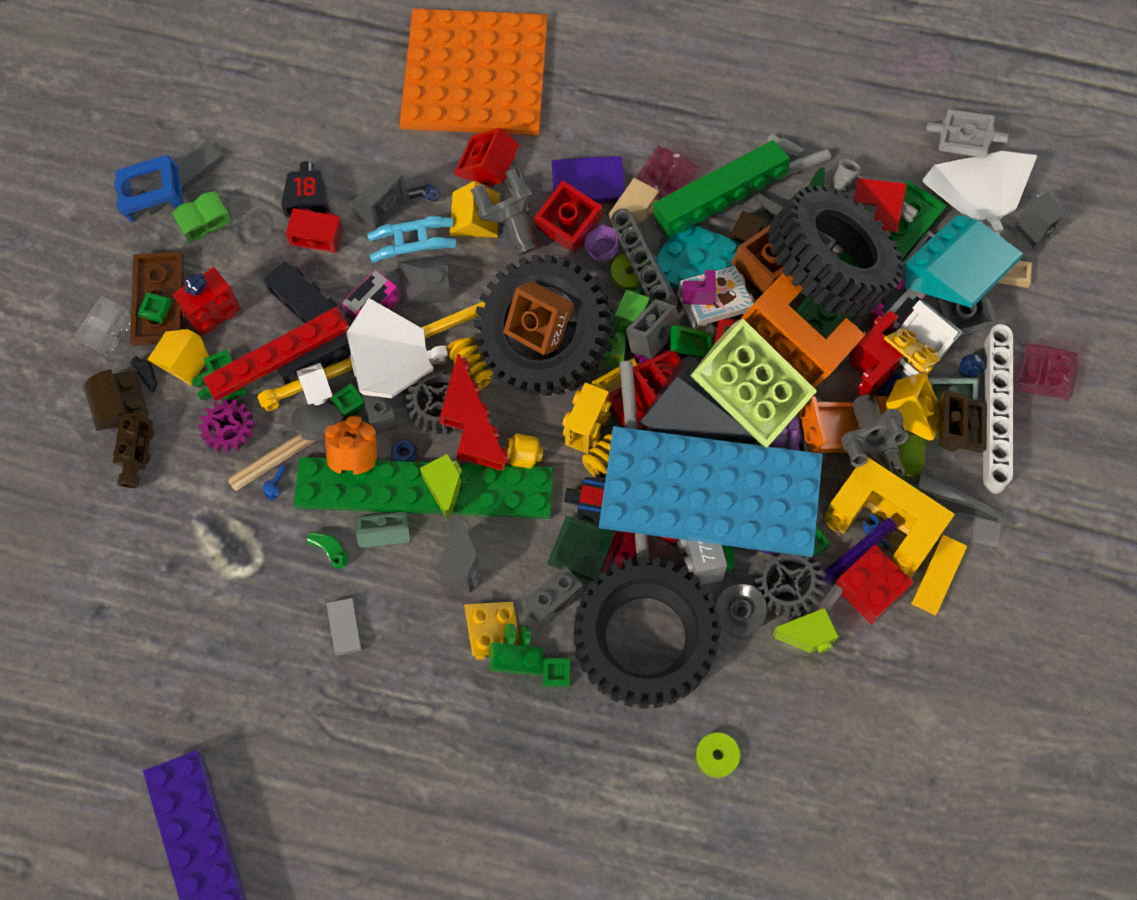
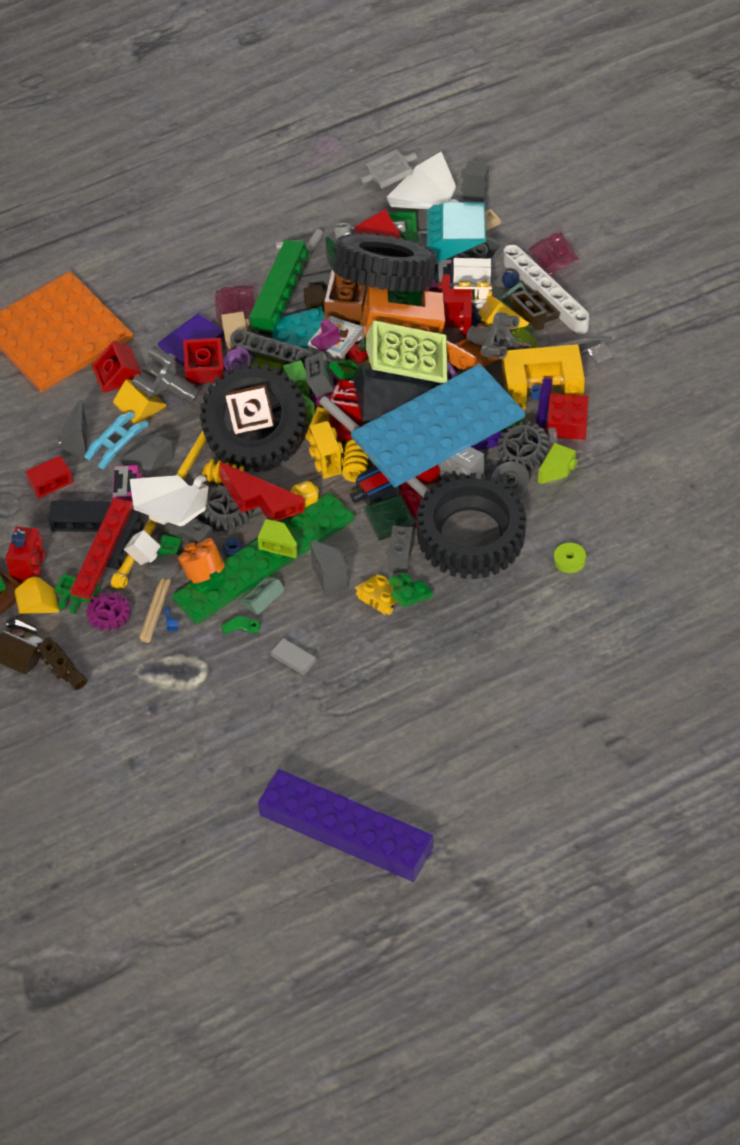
camera: 40 degrees left, 15 degrees down
(305, 190) = (18, 459): black torso -> none
(424, 190) = (96, 411): arm -> none
(556, 672) = (441, 586): green tile -> none
(939, 575) = (597, 390): yellow tile -> none

